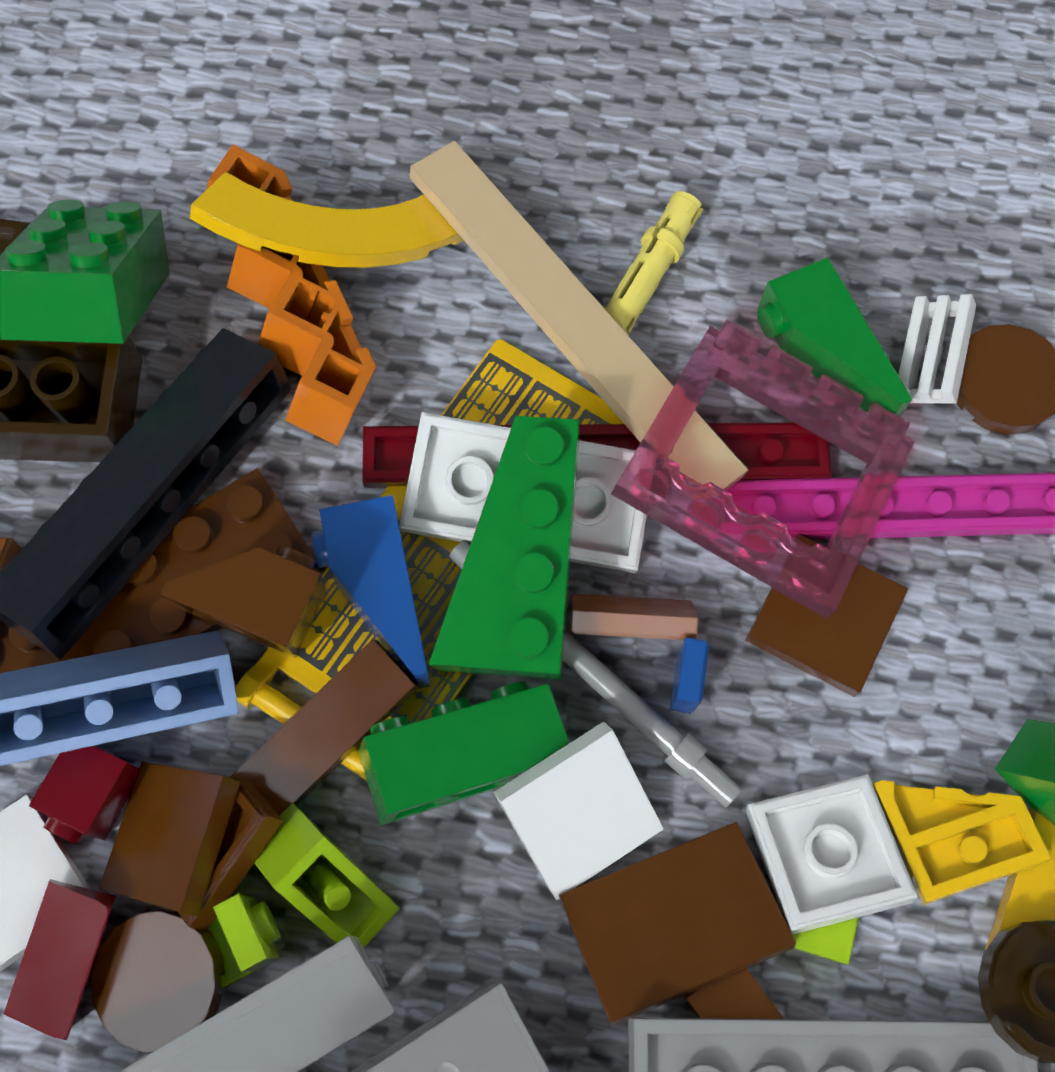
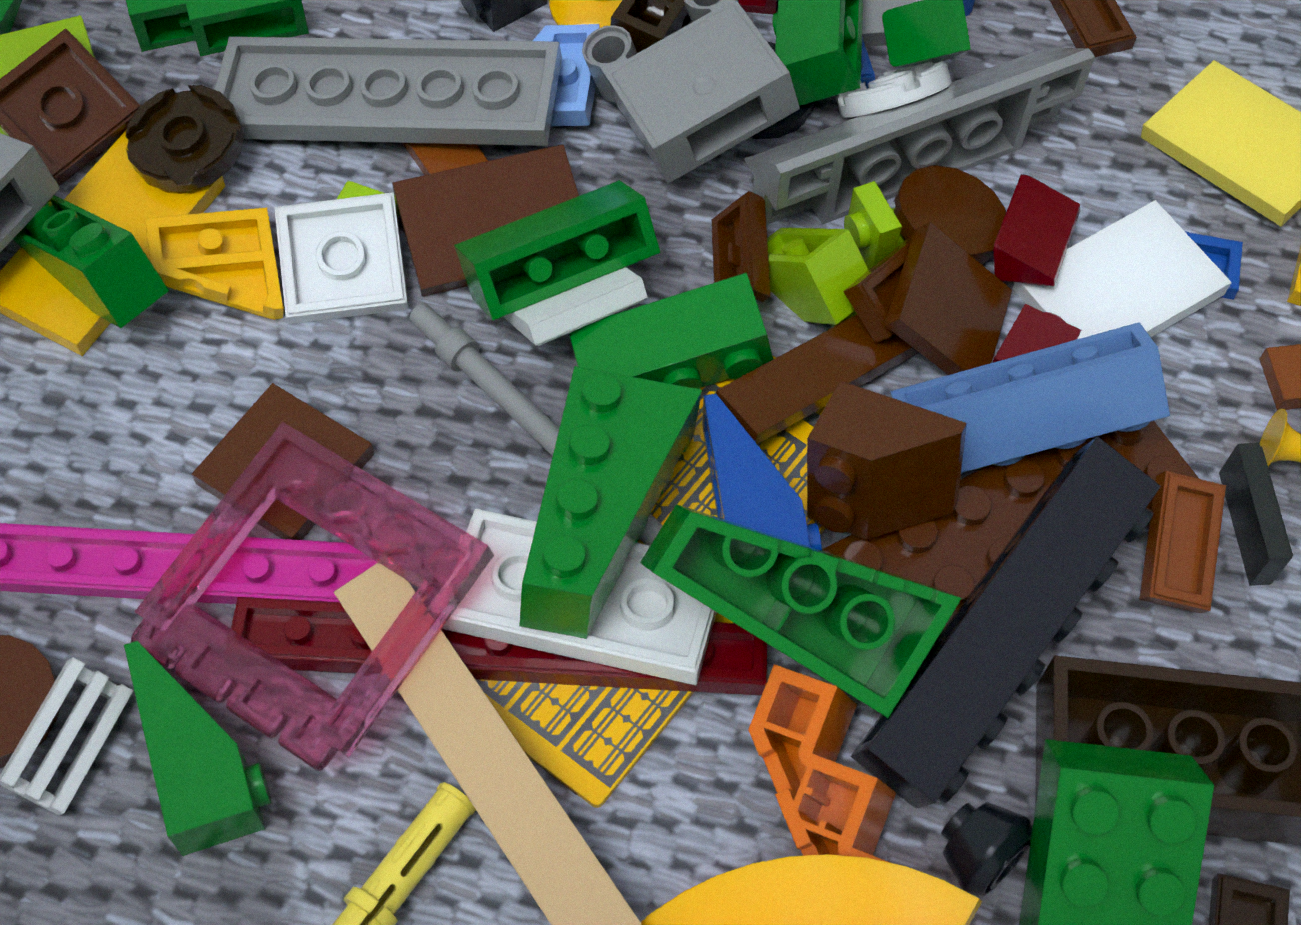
camera: 175 degrees left, 10 degrees down
(183, 315) = (985, 845): none -> black cone
(330, 454) = (820, 609): none -> green wedge
(397, 893) = (741, 243): none -> reddish brown tile
(597, 853) = (557, 249): none -> green brick
(633, 617) = (485, 465): tile -> none
(689, 675) = (441, 405): blue tile -> none

